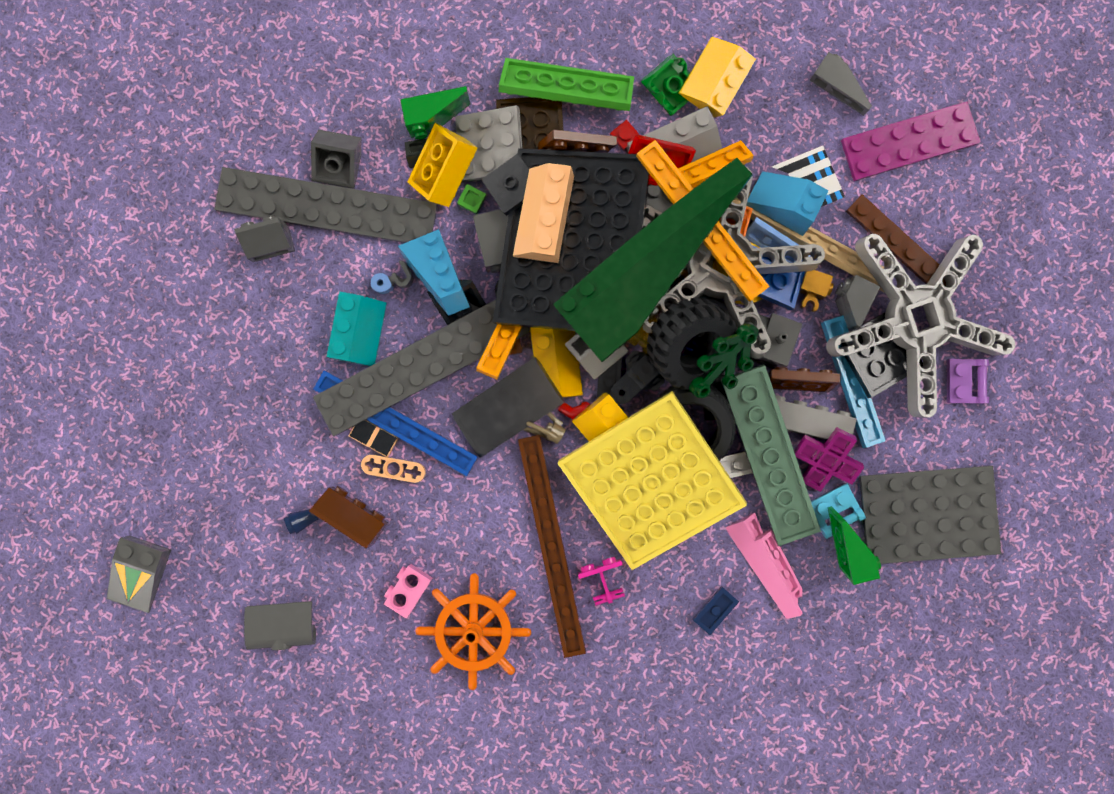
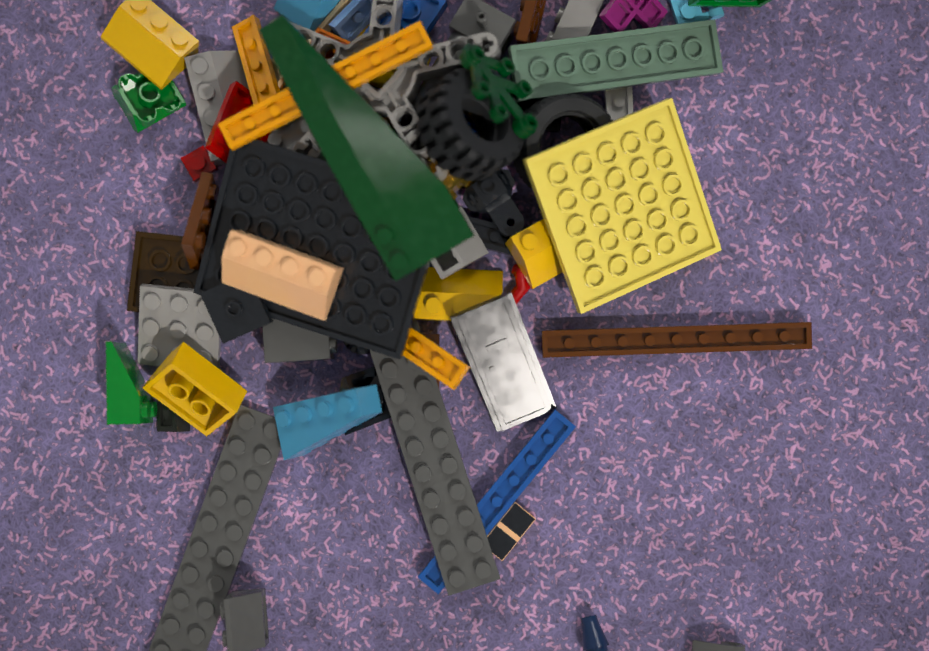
camera: 75 degrees left, 0 degrees up
(335, 158) = (161, 518): dark grey slope -> none
(349, 516) = (600, 575): reddish brown slope -> none
(356, 329) = (375, 528): teal slope -> none
(376, 471) = (537, 530): light nougat beam -> none
(384, 284) = (326, 485): leg -> none
(412, 593) = (703, 517): bright pink brick -> none
(471, 199) = (242, 361): bright green plate -> none
(473, 631) = (763, 451): orange piece -> none
(552, 432) = (540, 315): dark tan plant -> none
(566, 84) = (125, 221): bright green plate -> none
(608, 563) = (711, 276): dark pink plate -> none
(715, 610) = (786, 160): dark blue plate -> none
(768, 563) = (741, 88): bright pink wedge -> none

